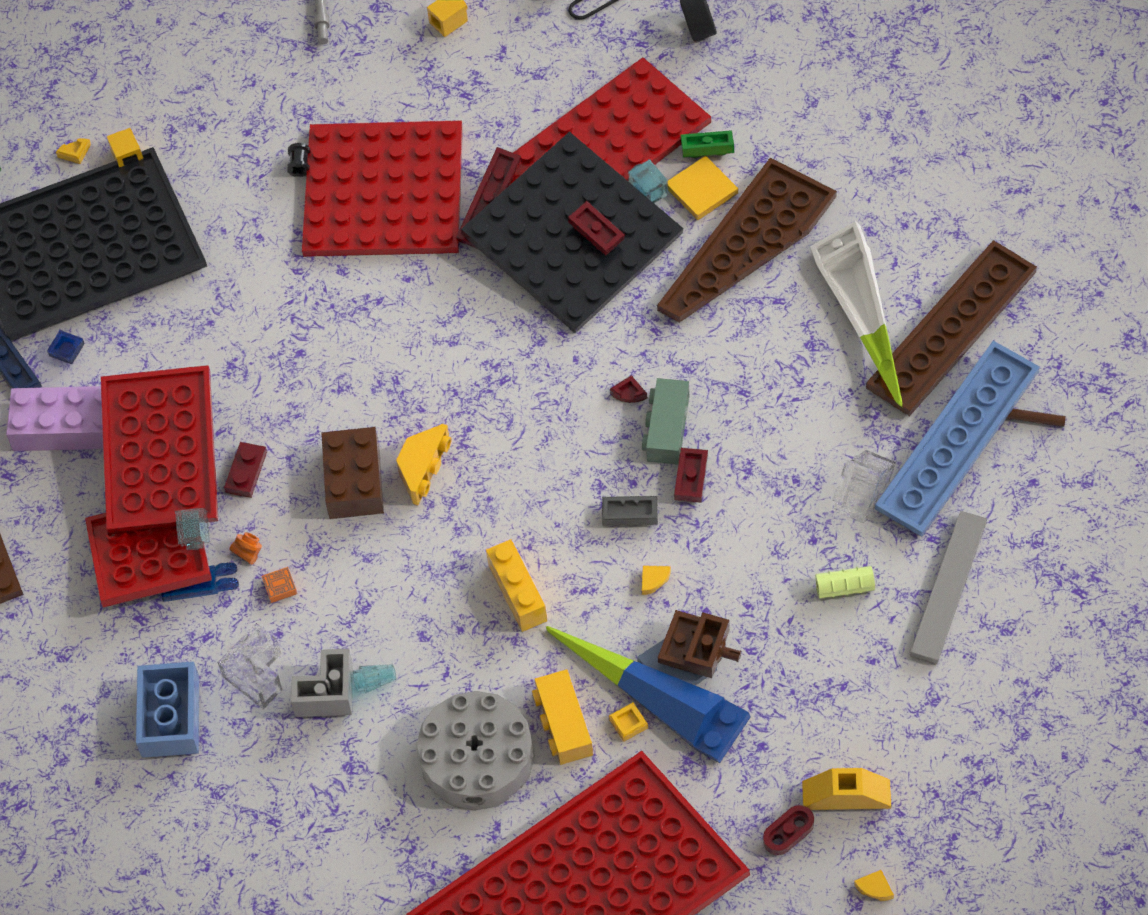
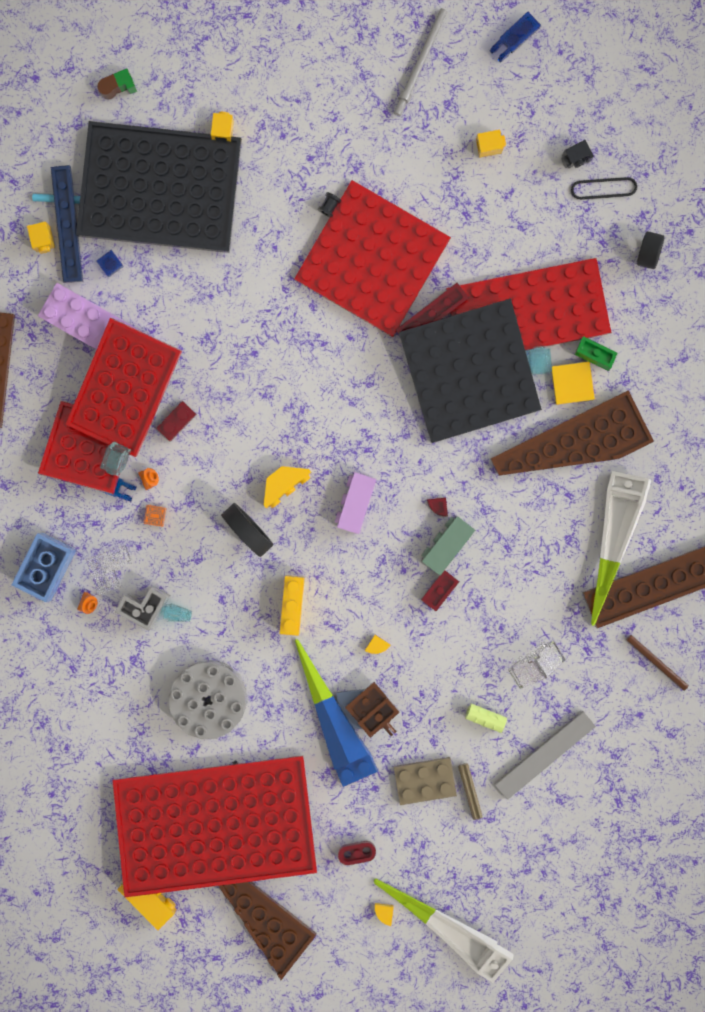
camera: 25 degrees right, 30 degrees up
(74, 151) = (191, 105): yellow tile -> none
(249, 729) = (87, 603): none -> orange plate
(352, 473) = (237, 467): reddish brown brick -> none
(413, 506) = (247, 529): none -> black tyre
(524, 436) = (355, 502): none -> lavender brick
(562, 717) = (270, 707): yellow brick -> none
(596, 228) = (483, 385): dark red plate -> none
(628, 721) = (307, 728): yellow tile -> none
(630, 510) = (389, 592): dark grey plate -> none
(819, 699) = (425, 781): none -> dark tan plate
(846, 790) = (402, 851): yellow slope -> none
(885, 678) = (470, 791): none -> dark tan axle
(957, 438) = (615, 664): medium blue plate -> none
(1019, 855) = (472, 946): none -> white plate

